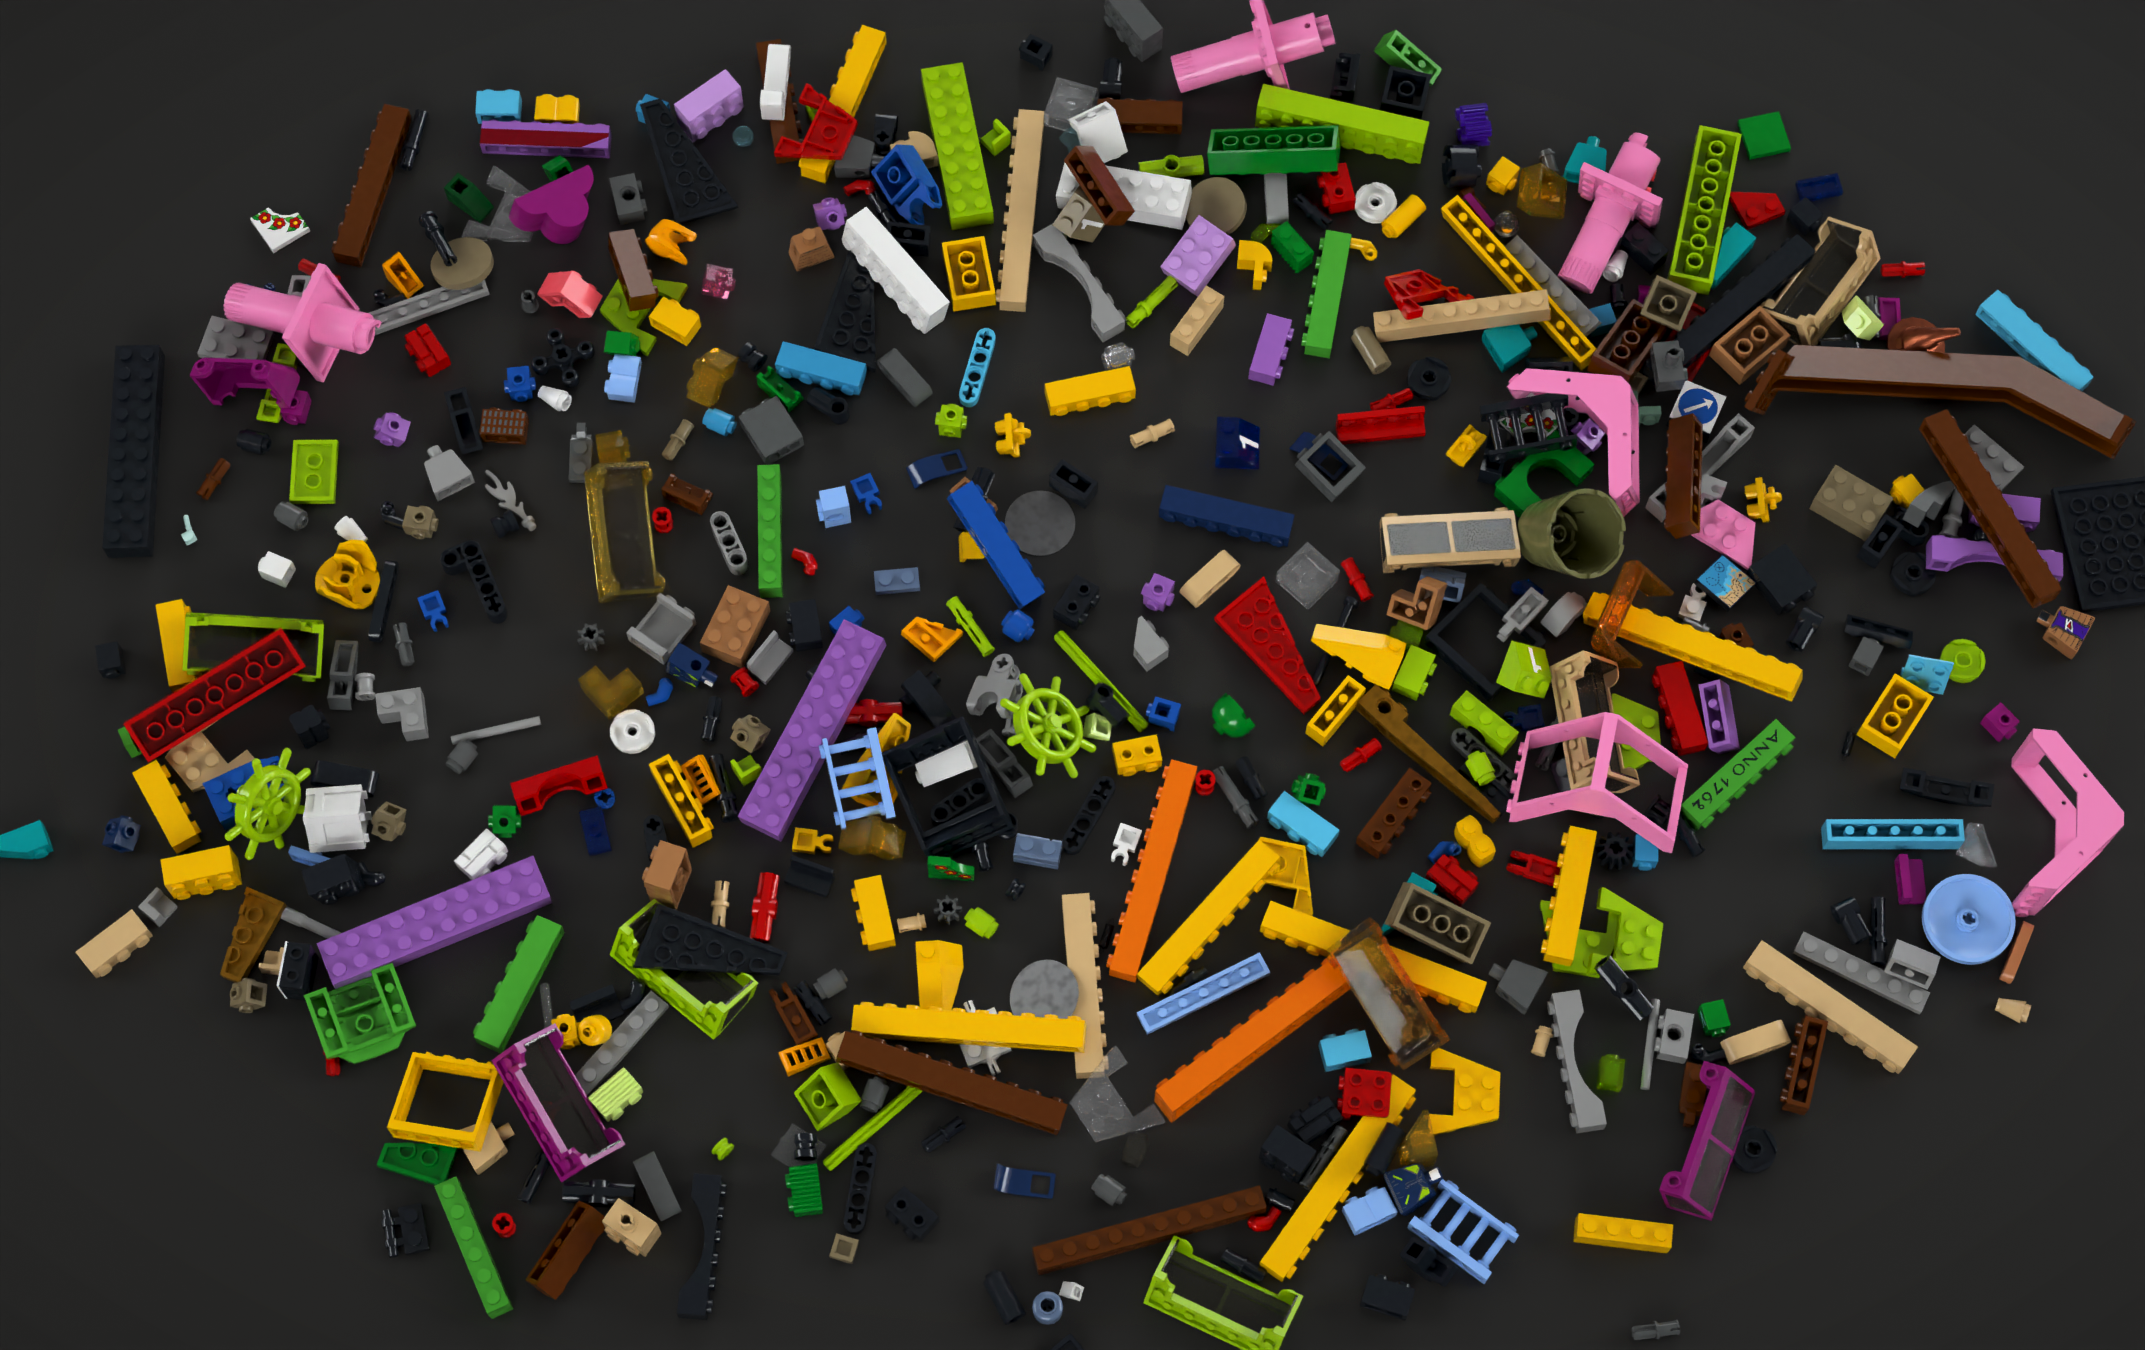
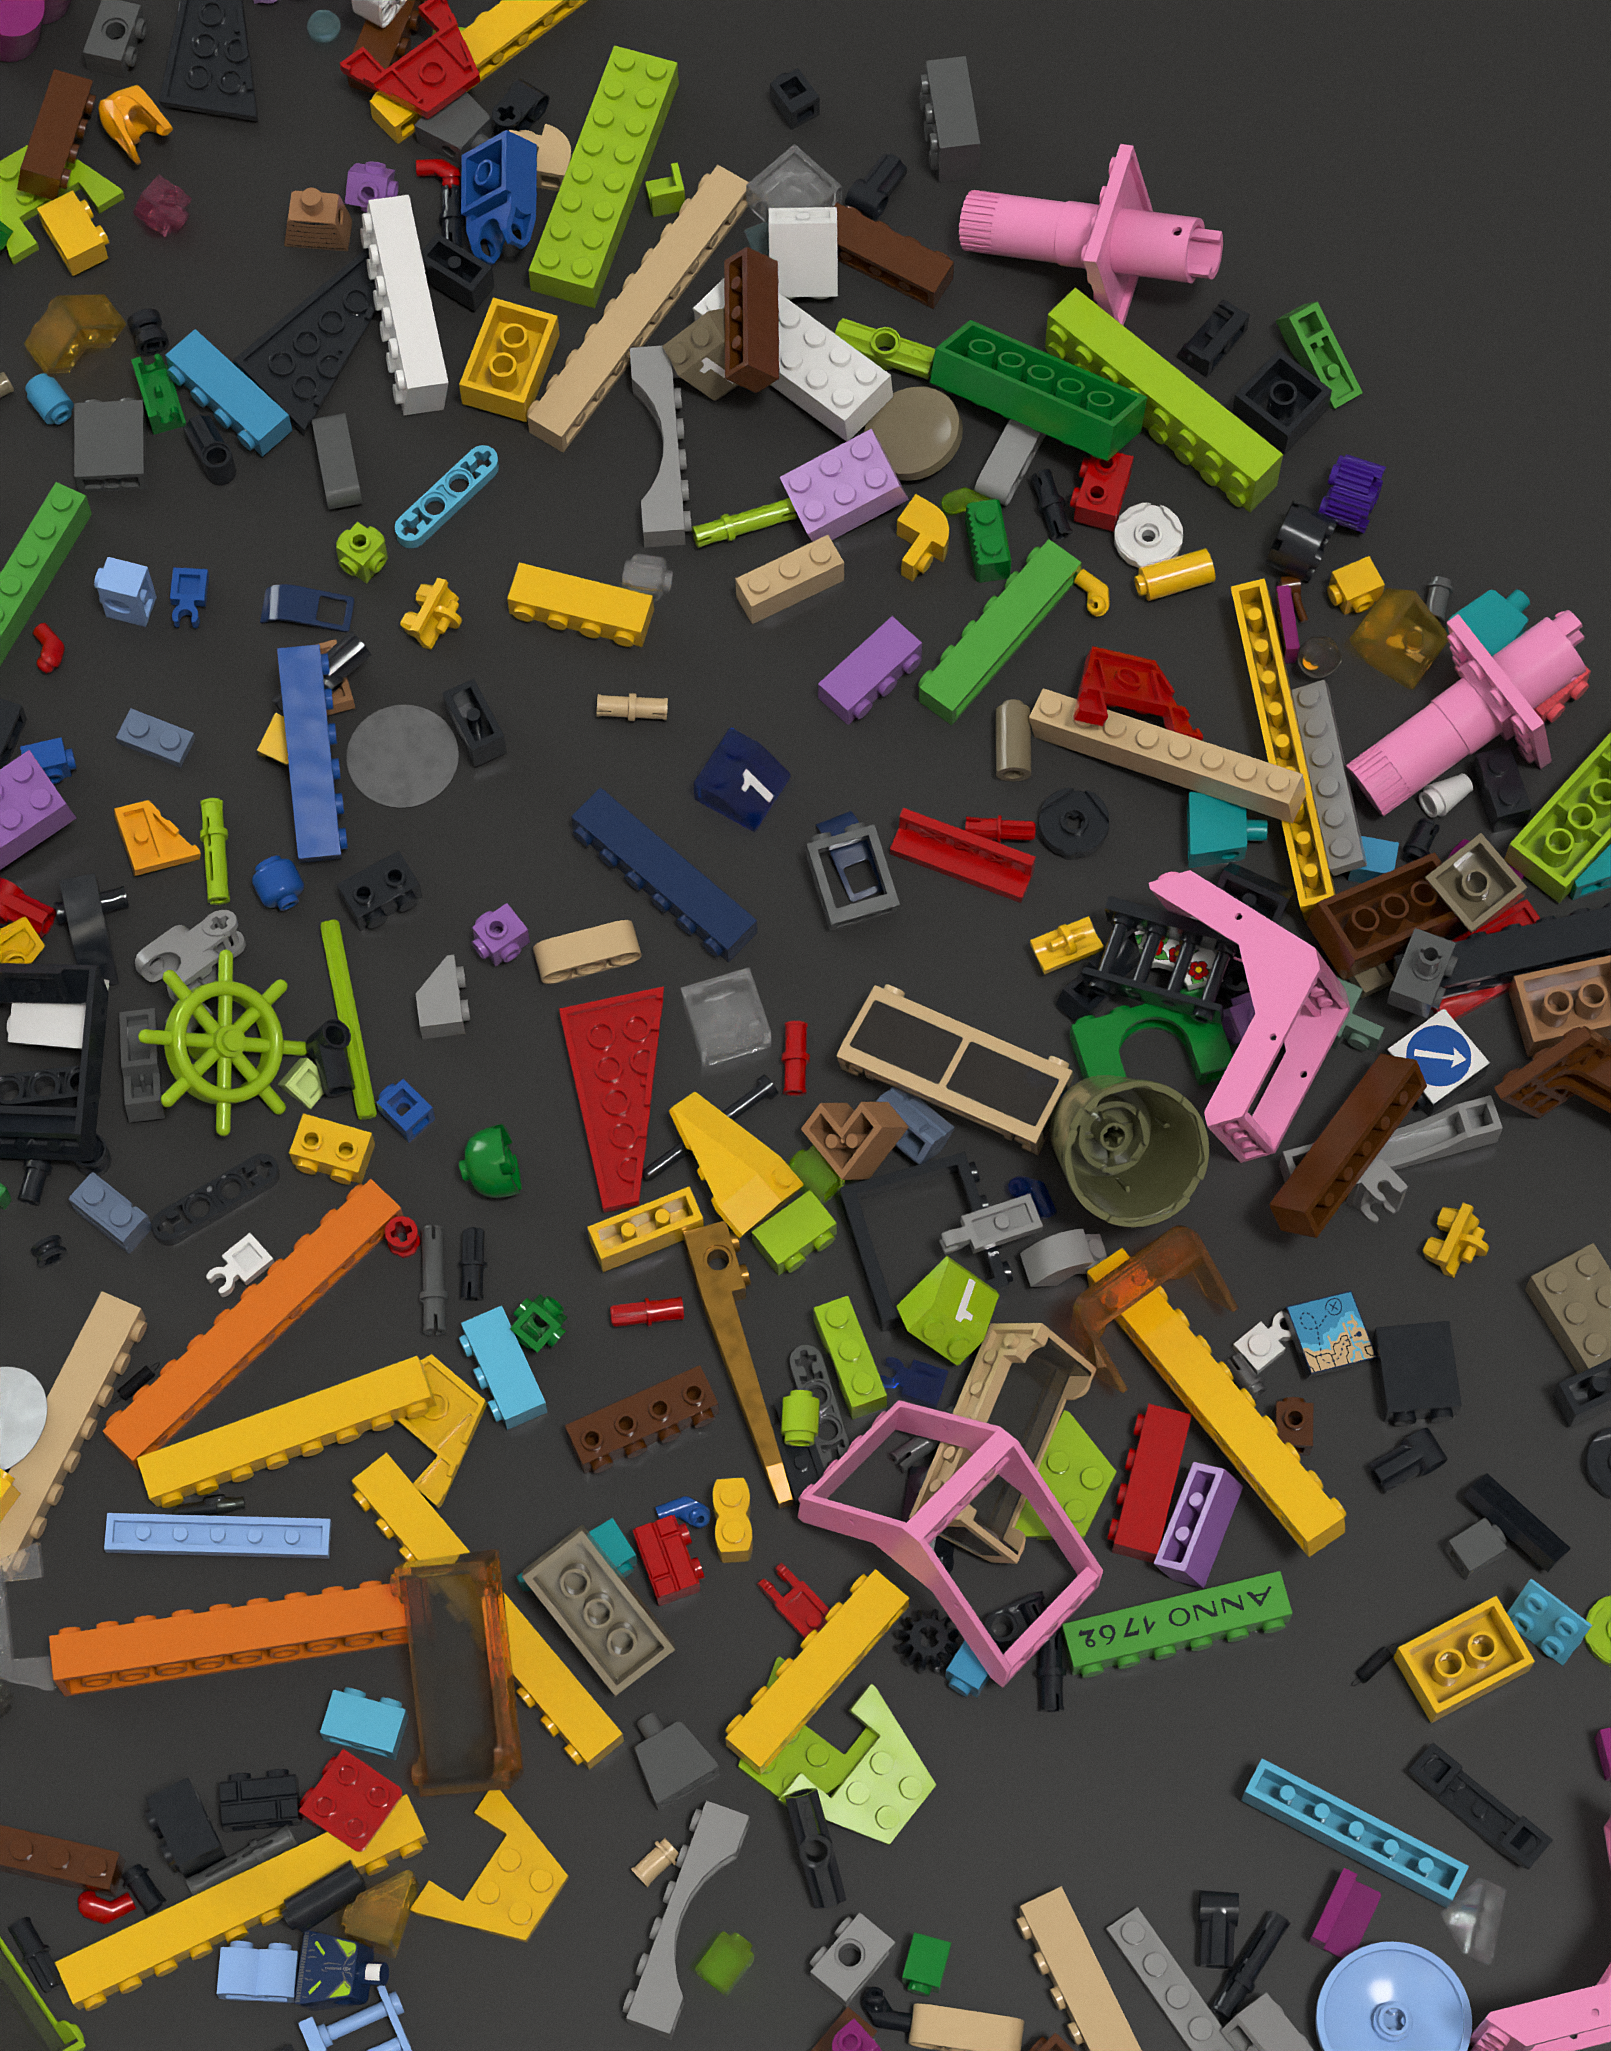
camera: 30 degrees right, 0 degrees up
(1649, 1047) = (802, 1964): light grey bar -> none
(1727, 532) = (1375, 1258): bright pink wing -> none

